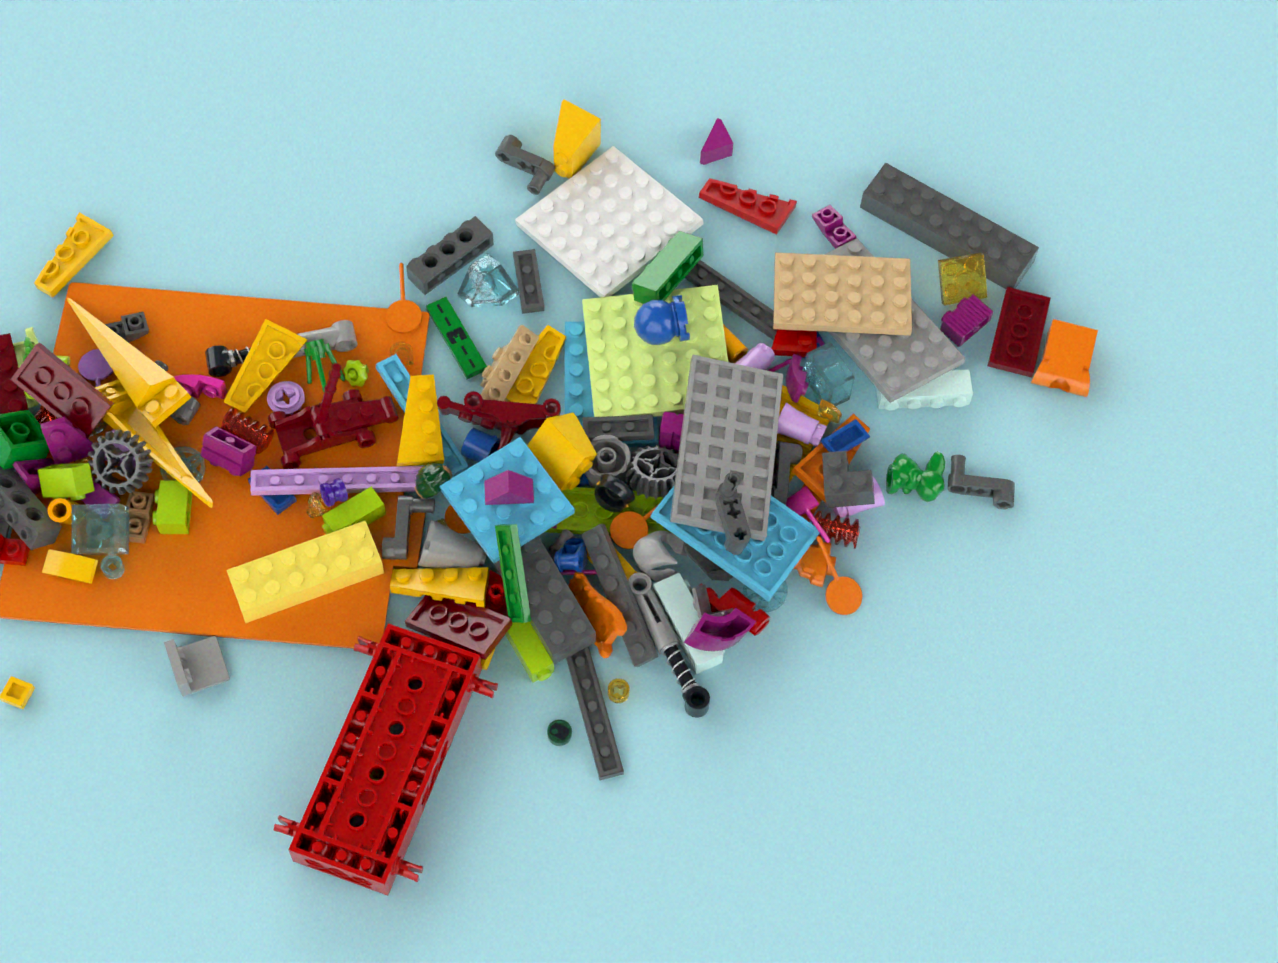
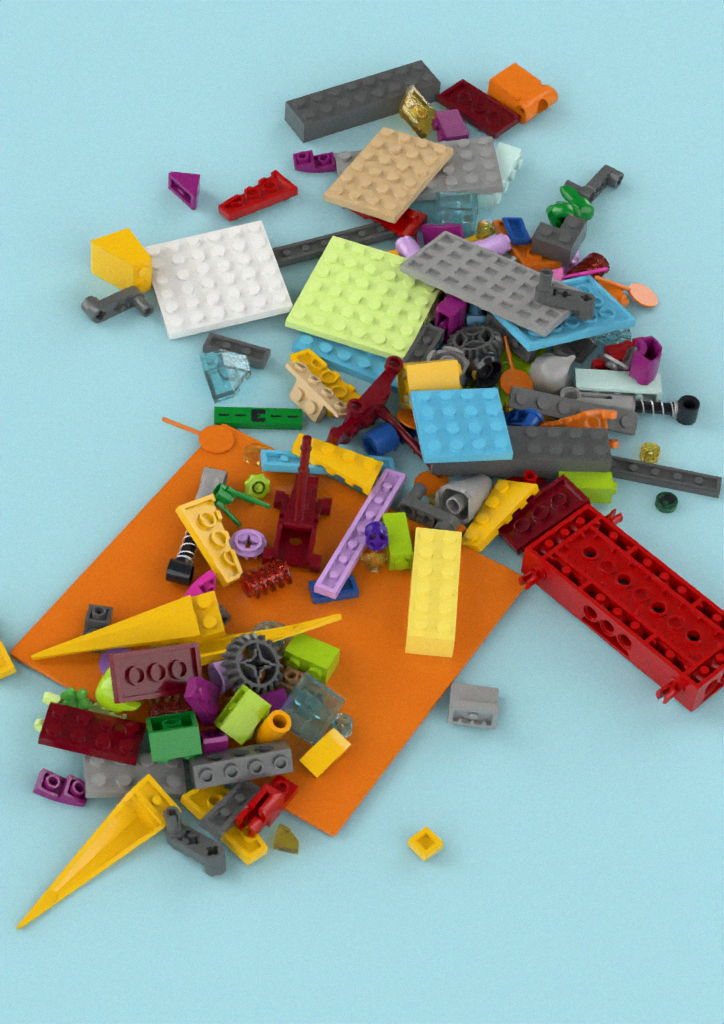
camera: 65 degrees left, 15 degrees down
(228, 451) = (283, 596): magenta brick -> none
(427, 278) = (175, 386): dark grey brick -> none
(430, 478) = (408, 468): dark green hair -> none
(508, 489) = (460, 414): magenta slope -> none
(513, 573) = (533, 445): green tile -> none
(660, 322) = (358, 266): blue tile -> none
(668, 268) = (300, 254): brick -> none

